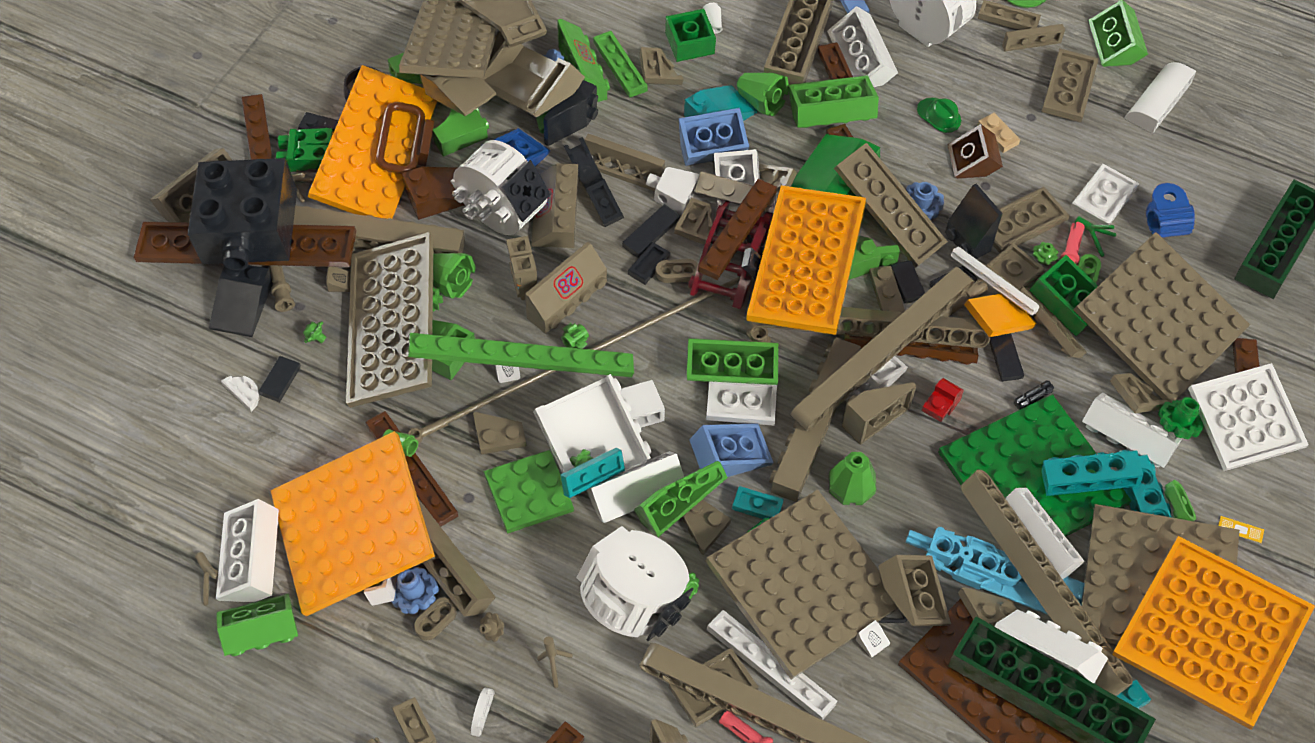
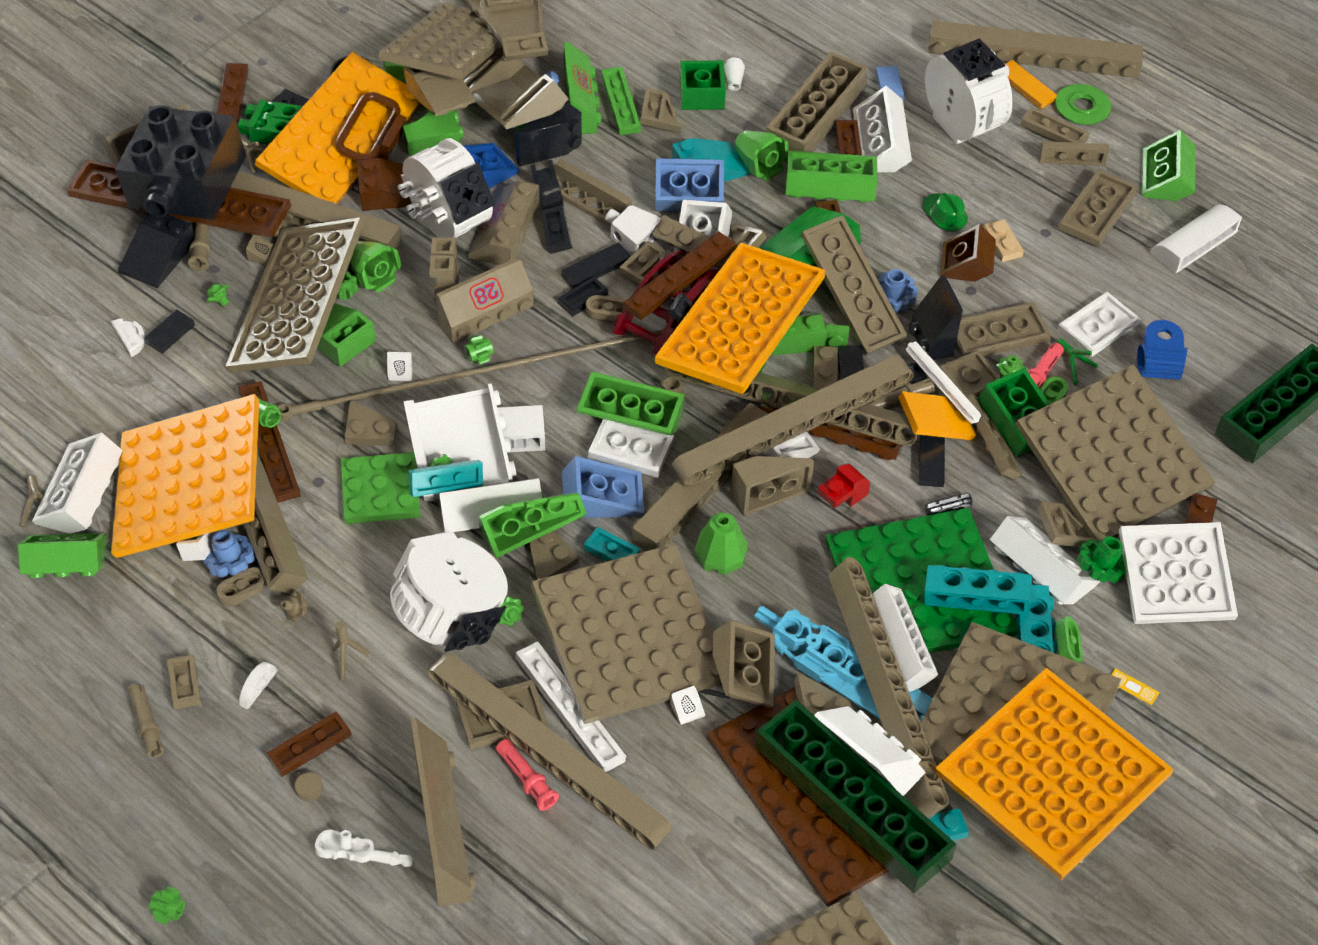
camera: 15 degrees right, 5 degrees down
(520, 355) = (413, 353): bright green plate -> none

